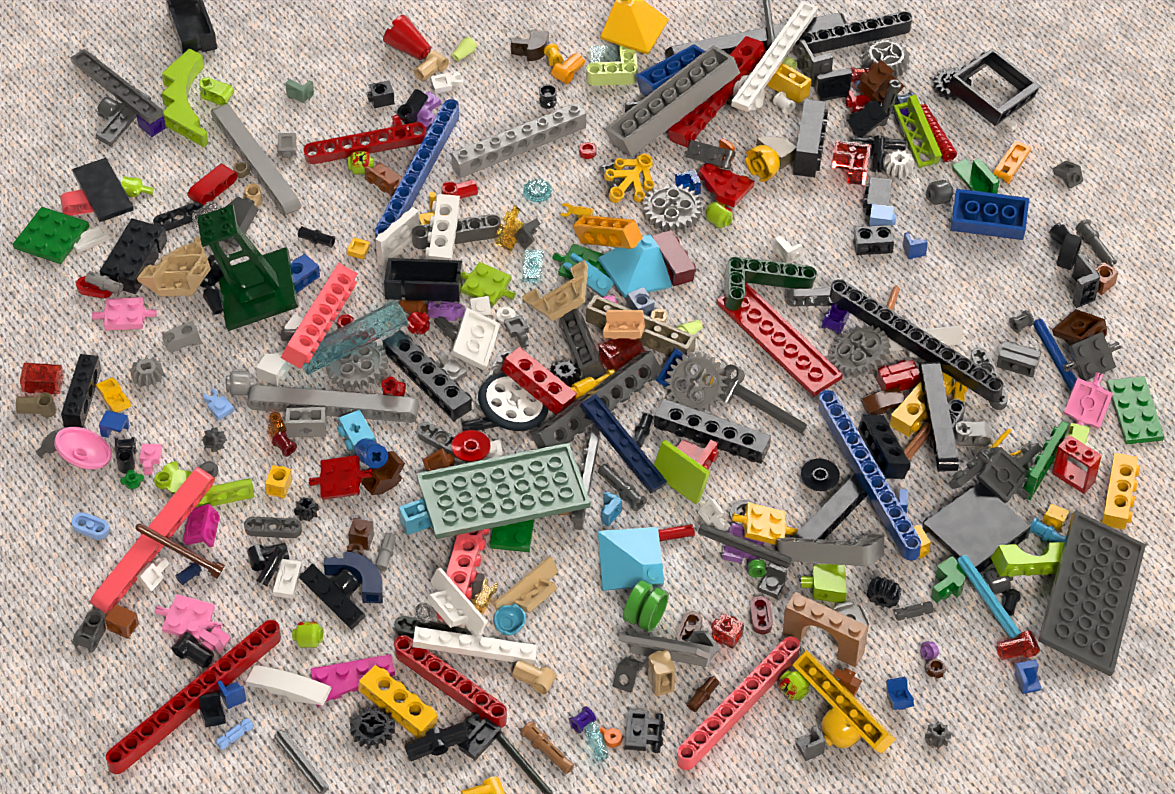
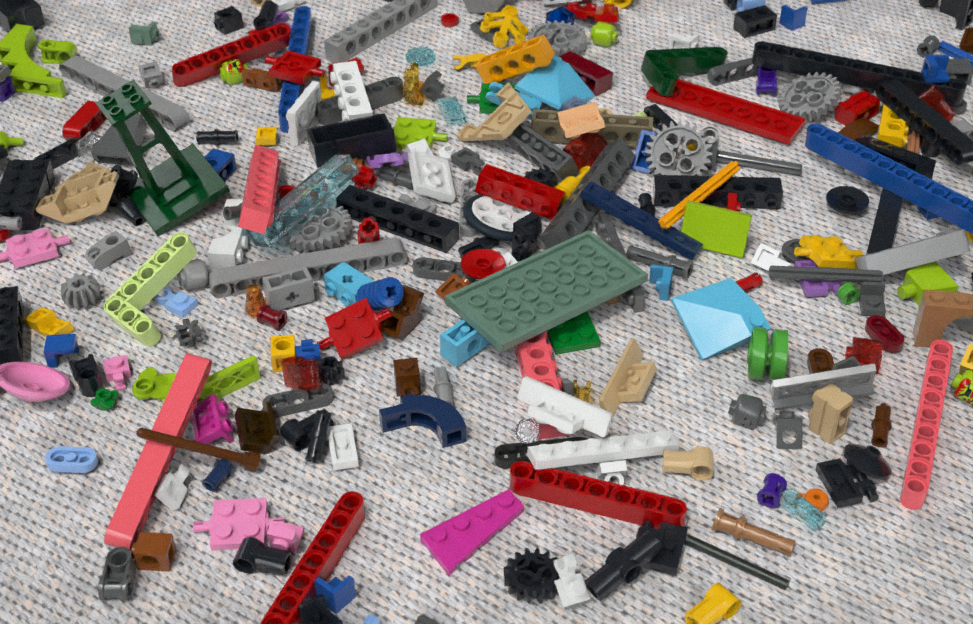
camera: 20 degrees left, 10 degrees down
(194, 385) = (145, 284): none -> yellowish green beam
(230, 543) = (257, 429): none -> dark brown bracket
(282, 505) = (301, 373): none -> clear red beam
(288, 684) = (407, 558): white slope -> none
(296, 488) = (308, 350): none -> blue gear
(308, 634) = (399, 497): lime head -> none
(335, 593) = (408, 445): black plate -> none
(393, 744) = (570, 585): none -> white plate
(409, 180) = (295, 67): none -> red plate
(416, 725) = (533, 529): yellow brick -> none
(472, 664) = (612, 470): none -> white tile
(509, 619) = (627, 412): medium azure hair -> none
(516, 431) = (524, 236): none -> black bracket
(605, 648) = (747, 411): none -> dark grey head
(669, 720) = (867, 460): none -> black dish
(687, 433) = (699, 194): none -> light orange axle
(711, 338) = (659, 118): none -> black beam
(968, 393) = (936, 100): none -> clear red piece
(980, 363) = (935, 68): none -> blue panel

